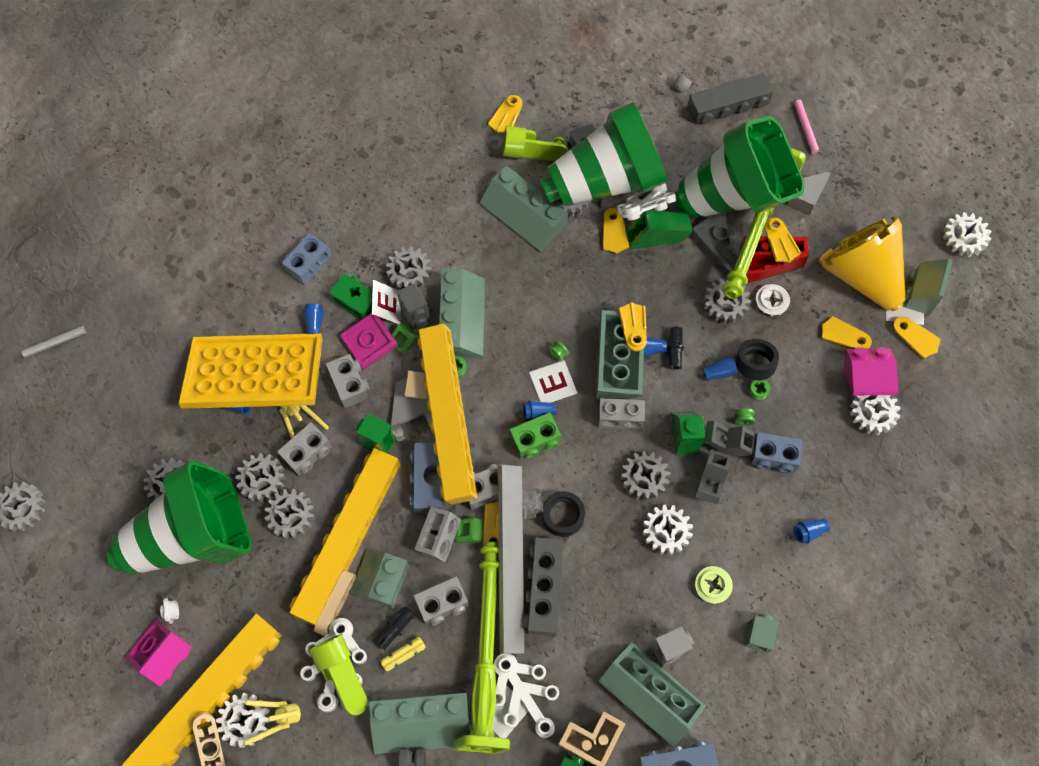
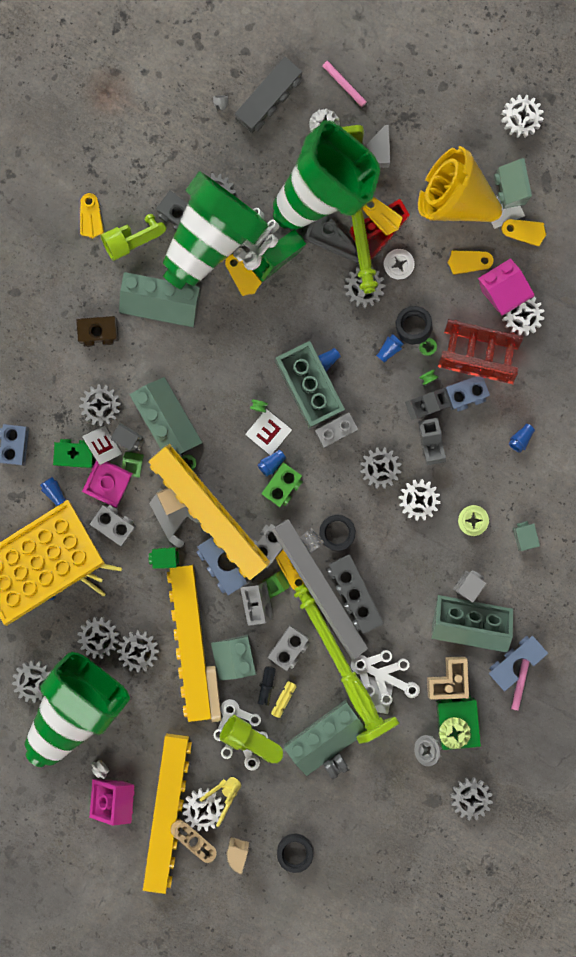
camera: 30 degrees left, 20 degrees up
(301, 446) = (111, 595): light grey brick -> none
(443, 196) = (86, 326): none -> dark brown brick
(634, 325) = (307, 356): yellow piece -> none
(675, 348) = (346, 349): black axle -> none
(687, 432) = (392, 414): green slope -> none
(803, 428) = (475, 366): none -> clear red fence

